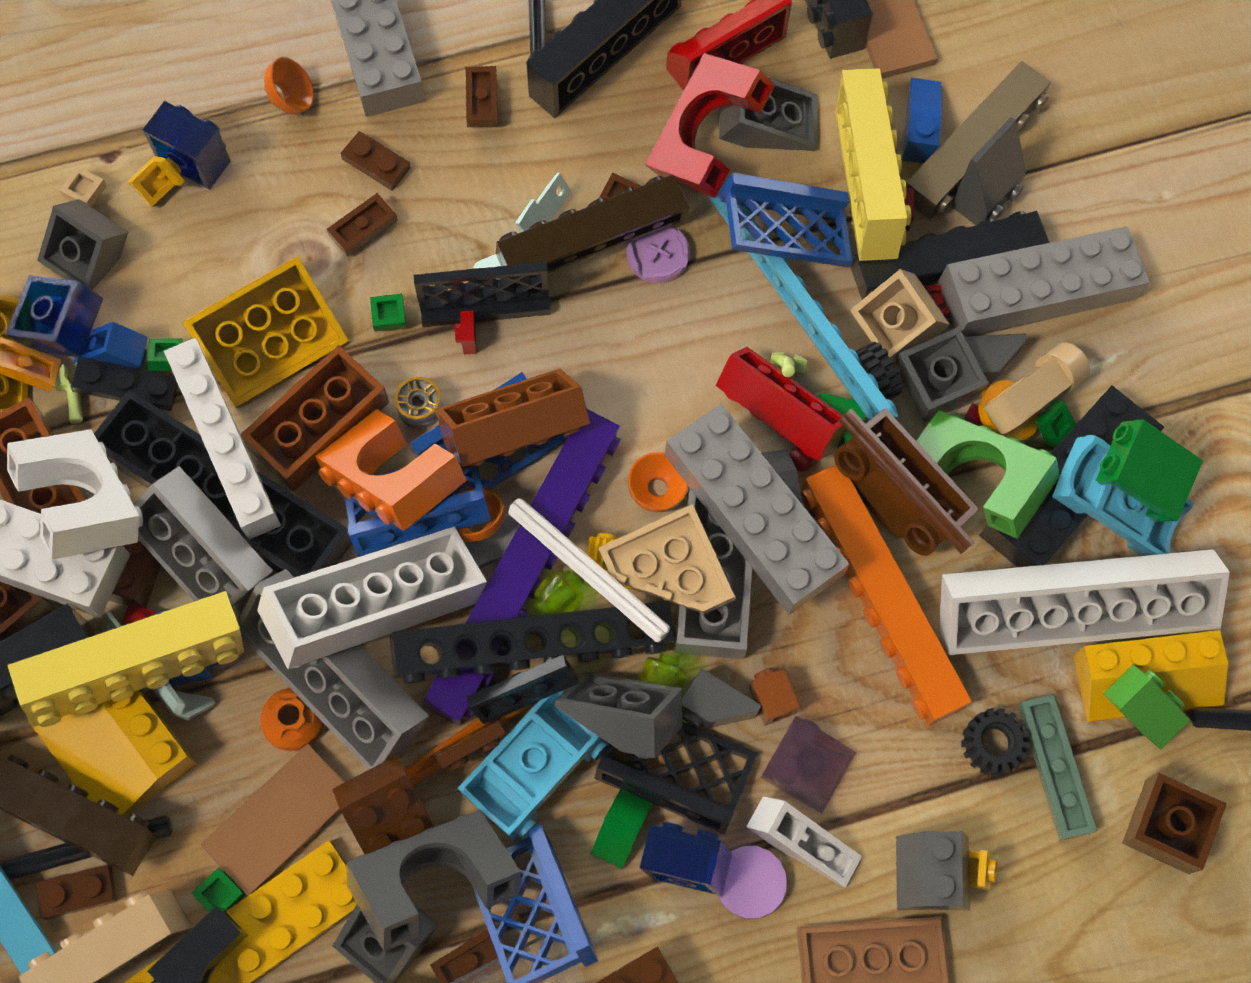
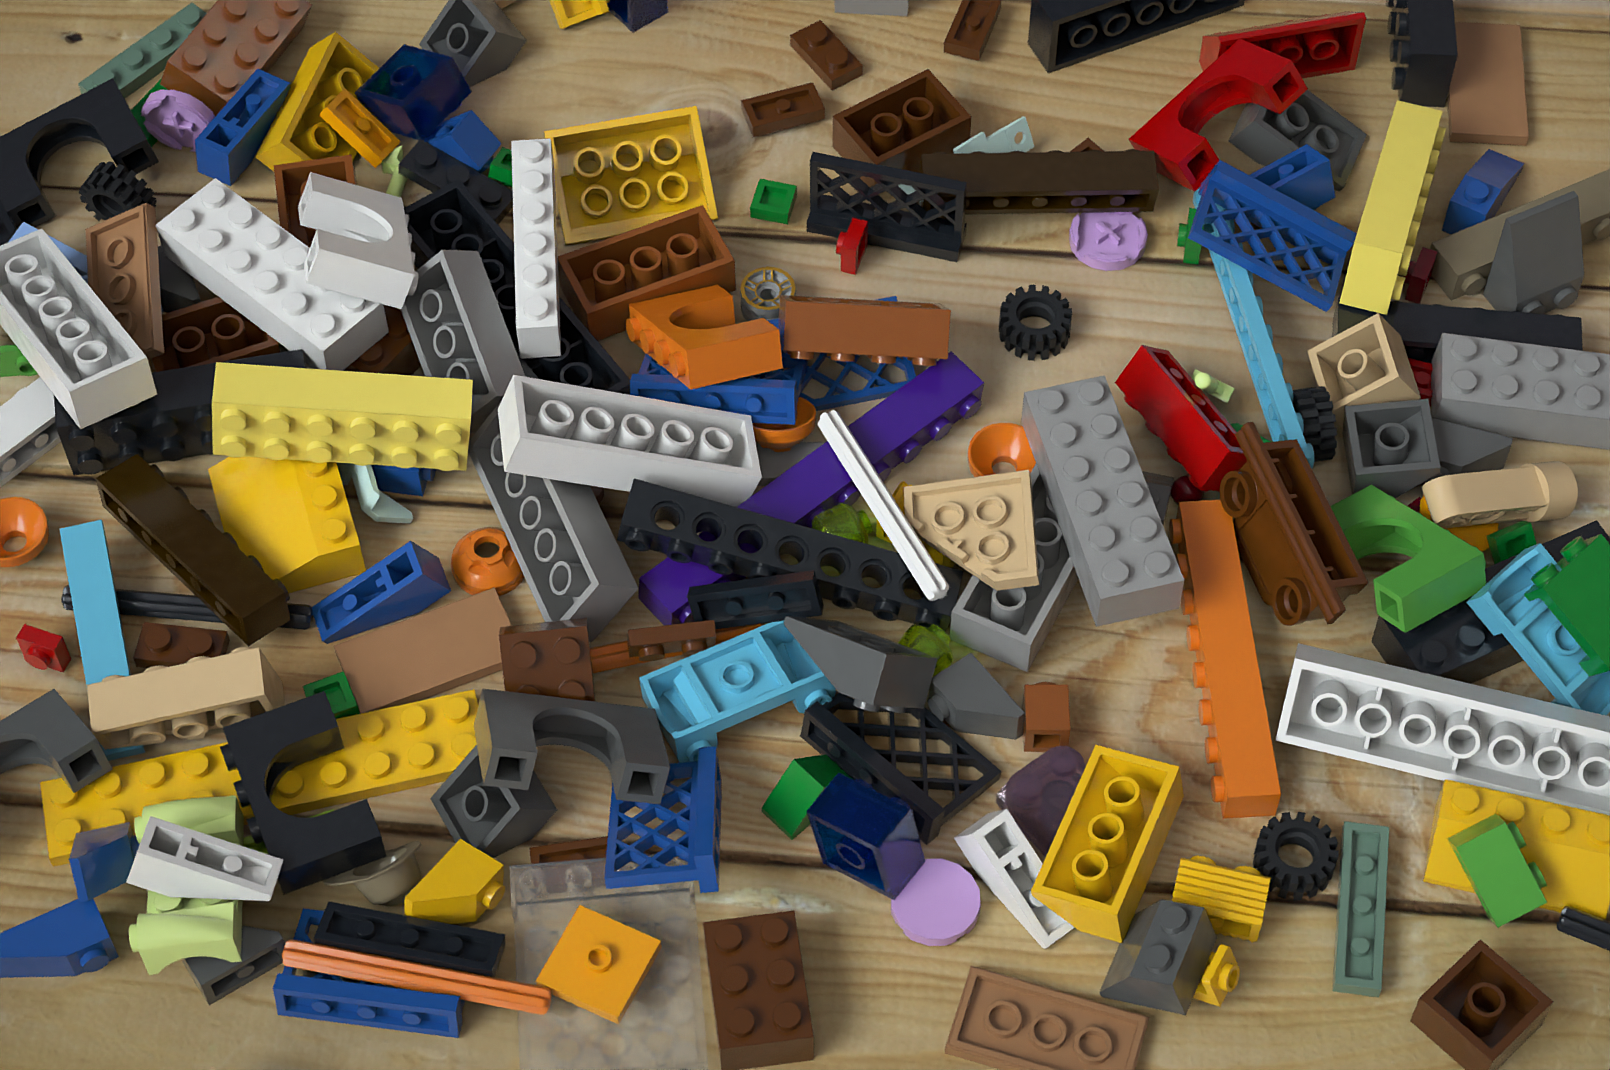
camera: 25 degrees right, 15 degrees down
(220, 785) = (382, 594): none -> blue slope
(466, 216) = (902, 125): none -> reddish brown brick
(629, 369) = (1040, 305): none -> black tyre
(721, 233) = (1191, 248): none -> green plate
(786, 158) = (1301, 176): none -> blue brick
(861, 788) = (1109, 841): none -> yellow slope
(955, 800) = (1230, 896): none -> yellow brick

